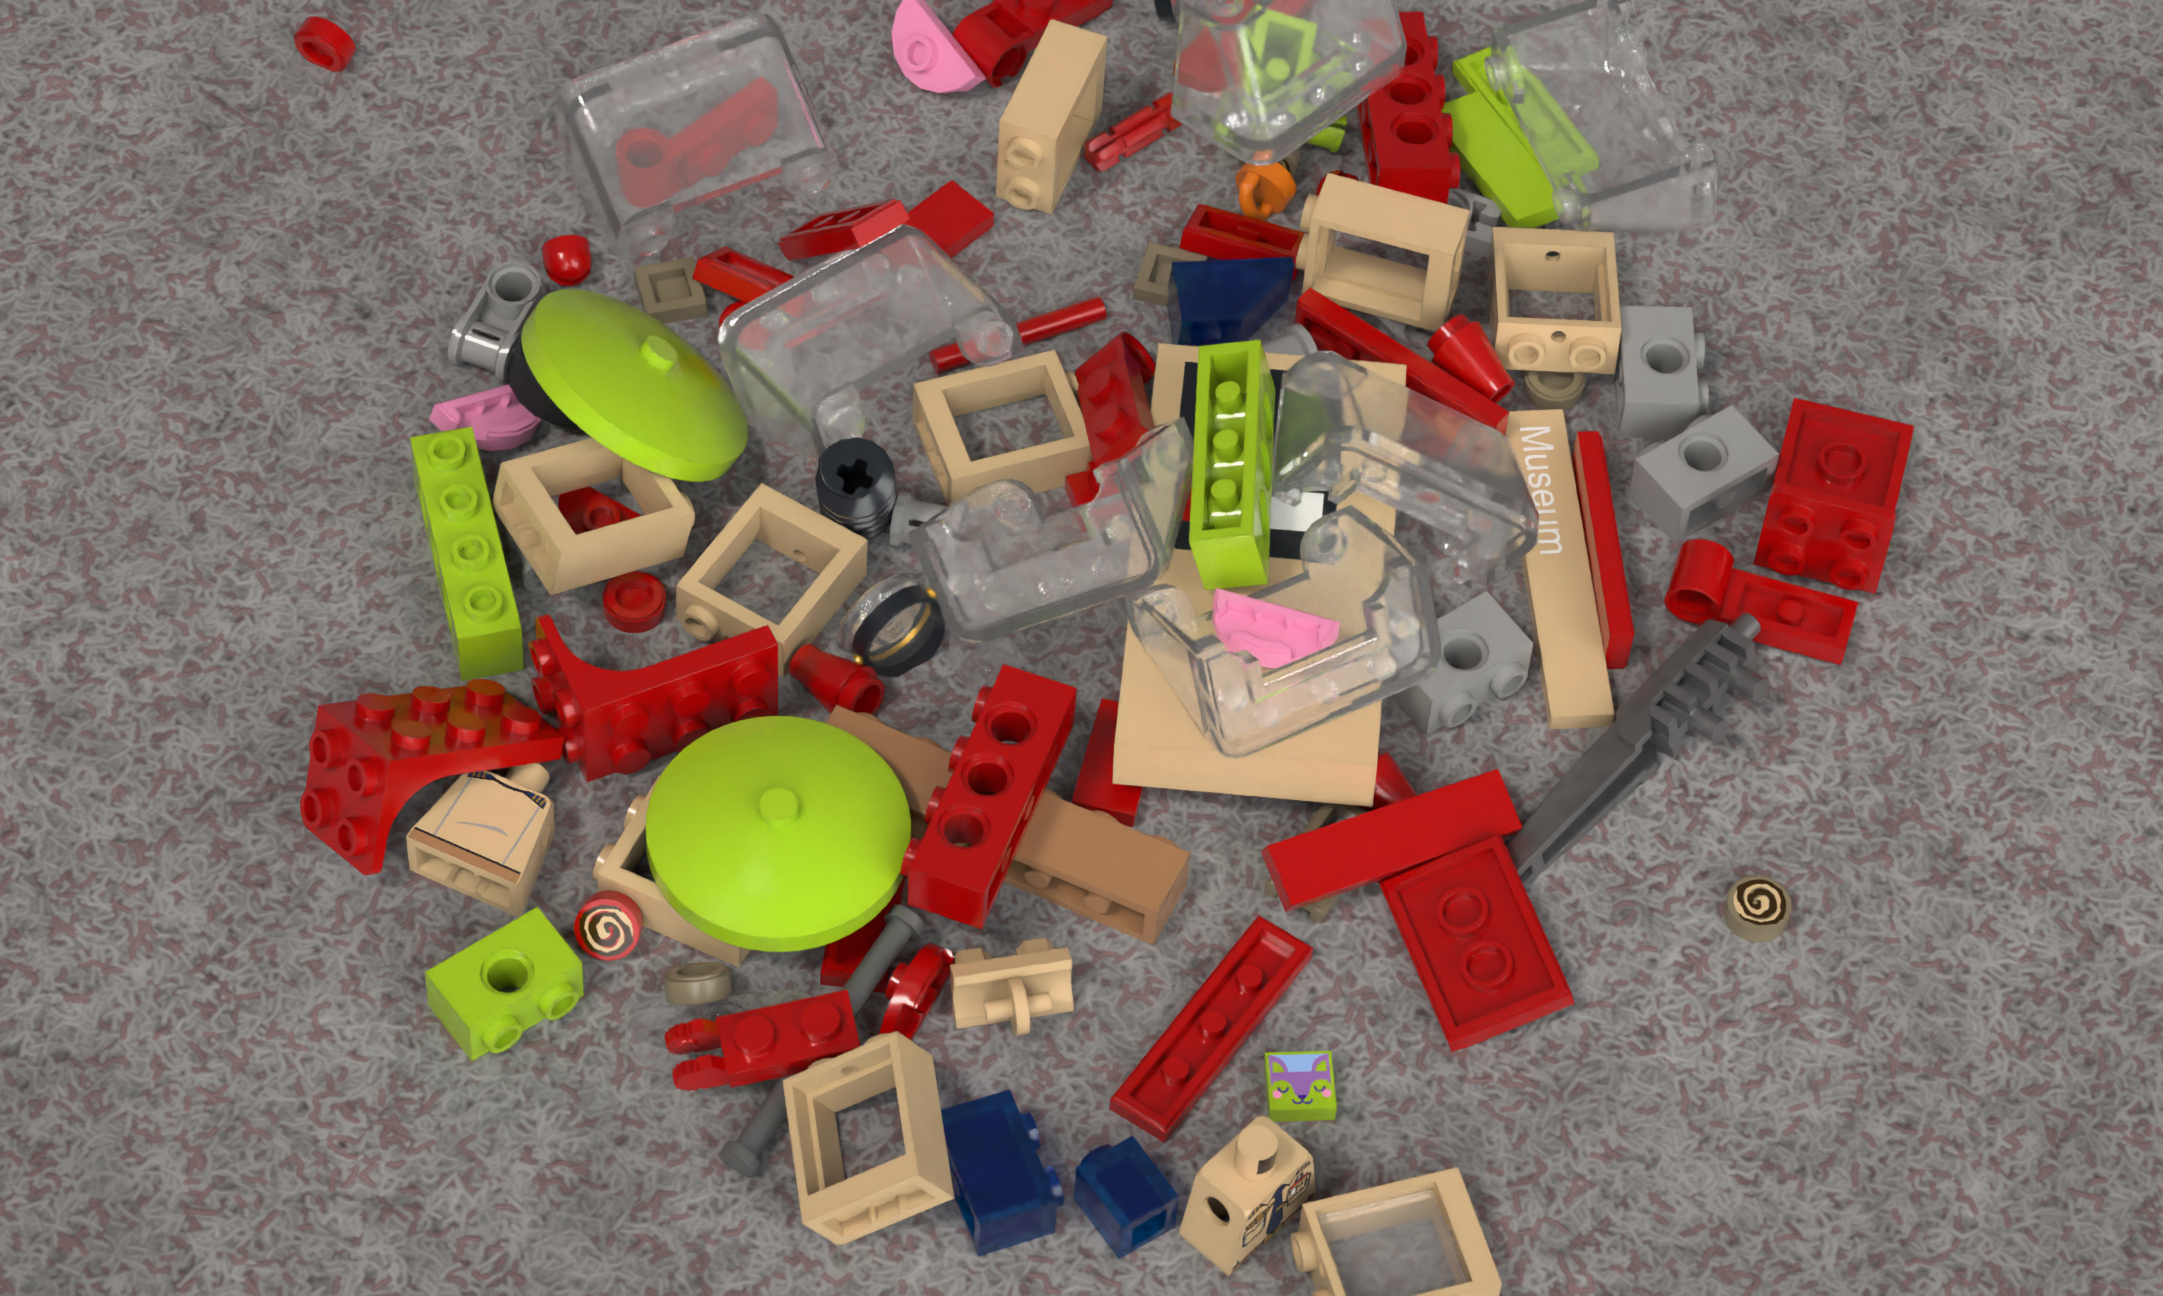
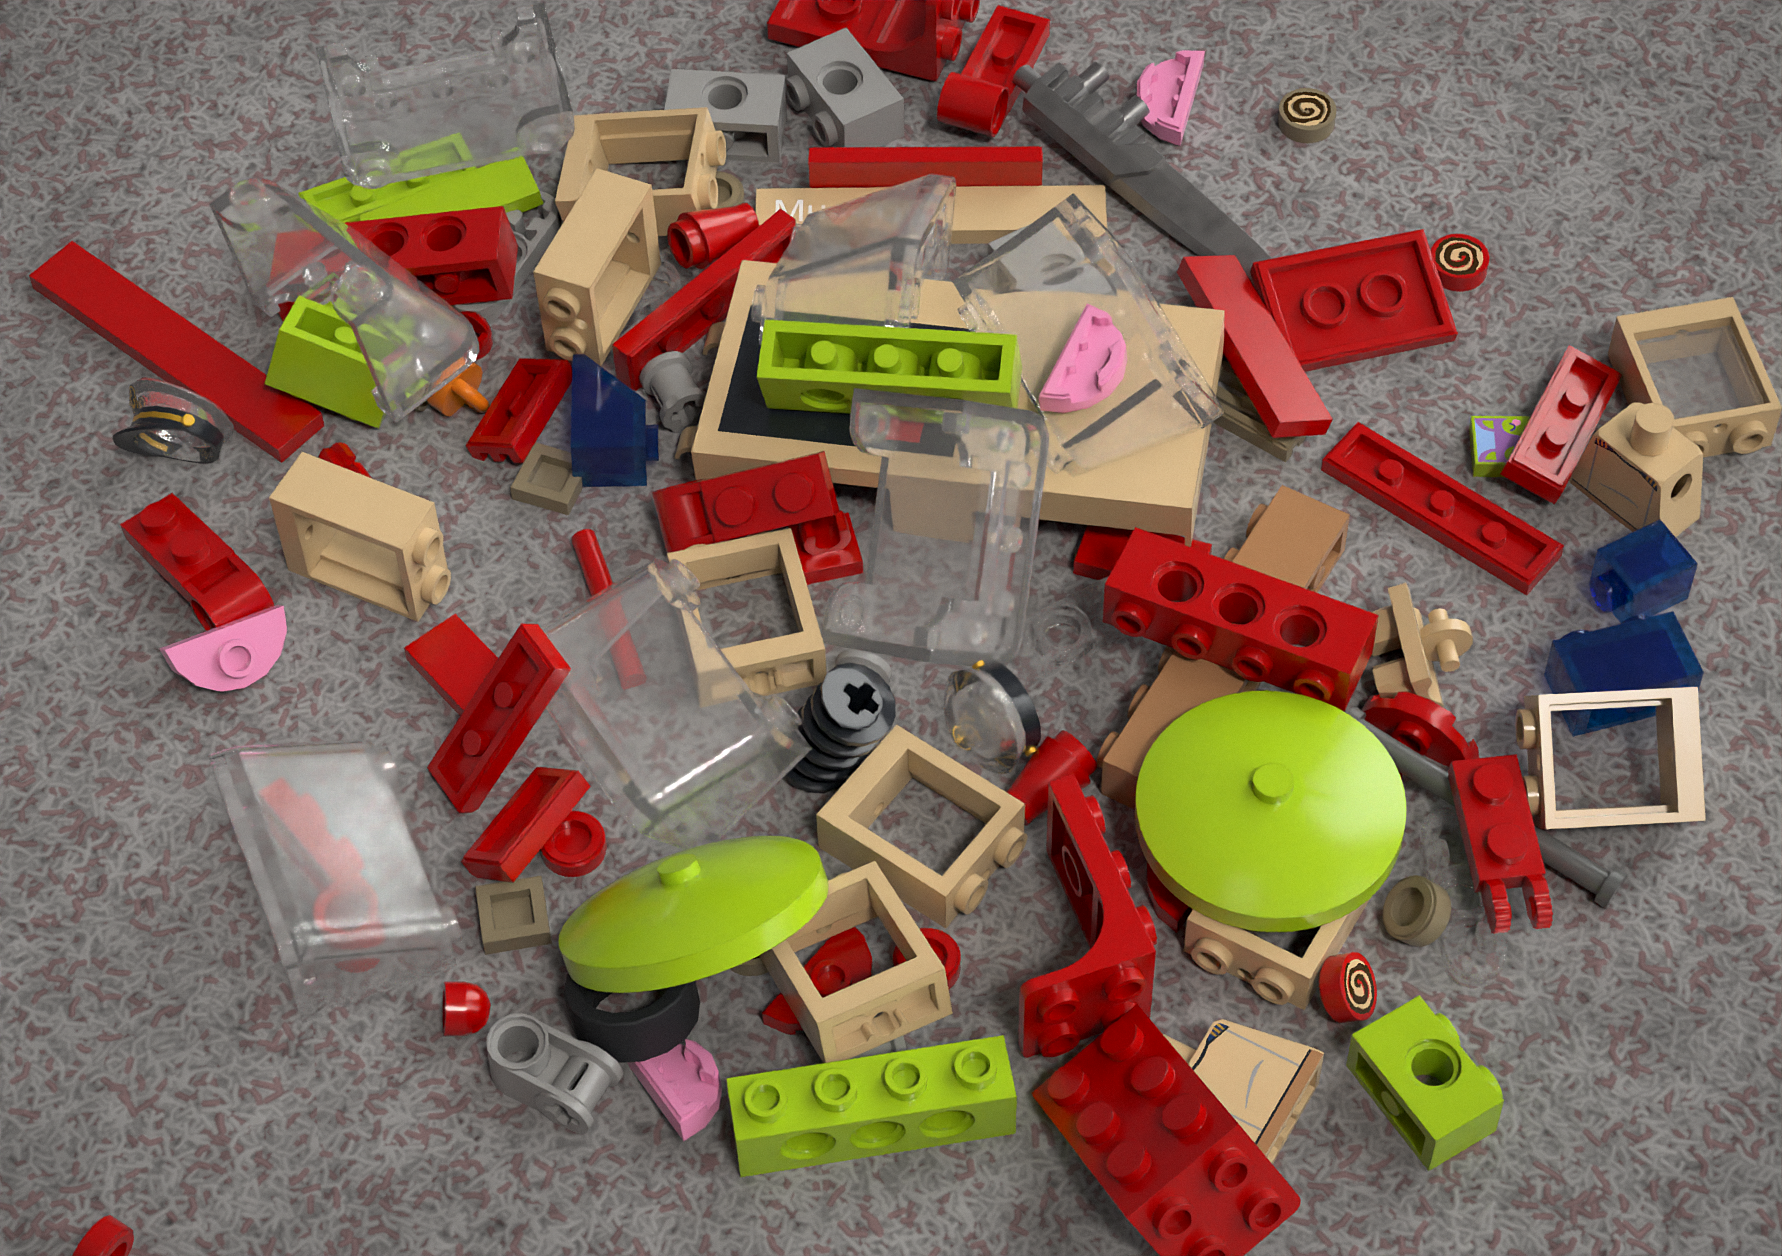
camera: 80 degrees left, 0 degrees up
(1335, 1133) = (1561, 424): none -> tile
(1558, 1051) = (1460, 261): none -> tile
(1762, 771) = (1170, 93): none -> bright pink plate

